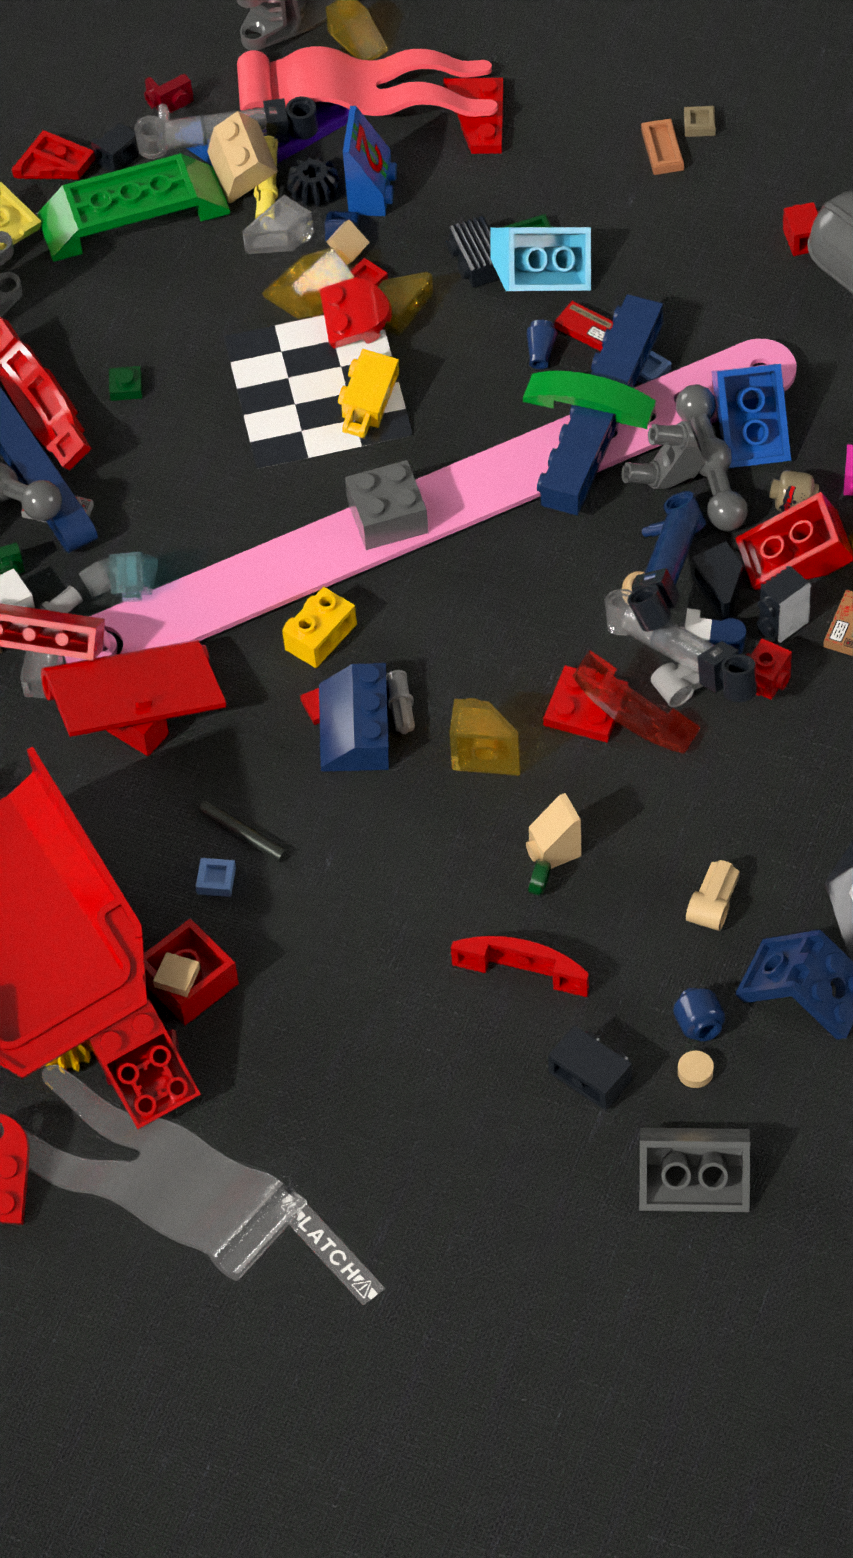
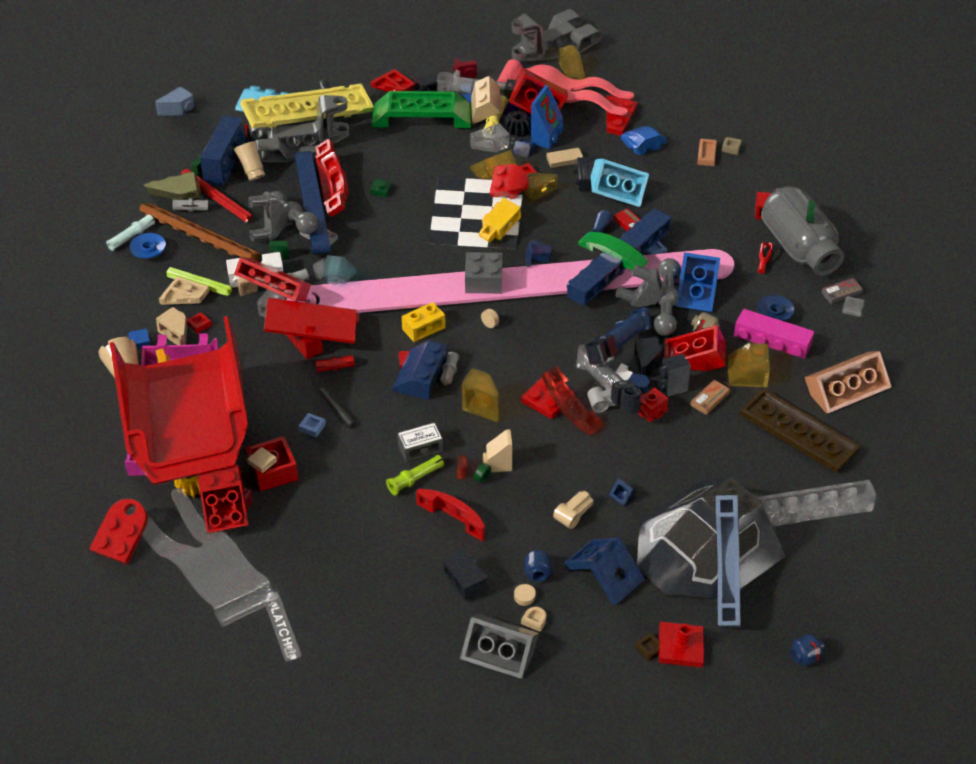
camera: 15 degrees right, 10 degrees down
(202, 751) = (334, 363): none -> red pin
(319, 116) = (528, 88): none -> red slope
(347, 242) = (523, 153): tan tile -> none
(413, 853) = (420, 442): none -> brick
(420, 925) = (407, 478): none -> lime pin
(421, 228) = (563, 157): none -> tan tile
(429, 586) = (490, 318): none -> tan tile
(455, 434) = (537, 252): none -> dark blue bracket
(500, 876) = (462, 466): none -> clear red tile
(543, 152) = (643, 139): none -> blue slope
(728, 1104) = (534, 618): none -> tan tile
(778, 841) = (622, 492): none -> dark blue slope
(839, 337) = (764, 260): none -> red piece

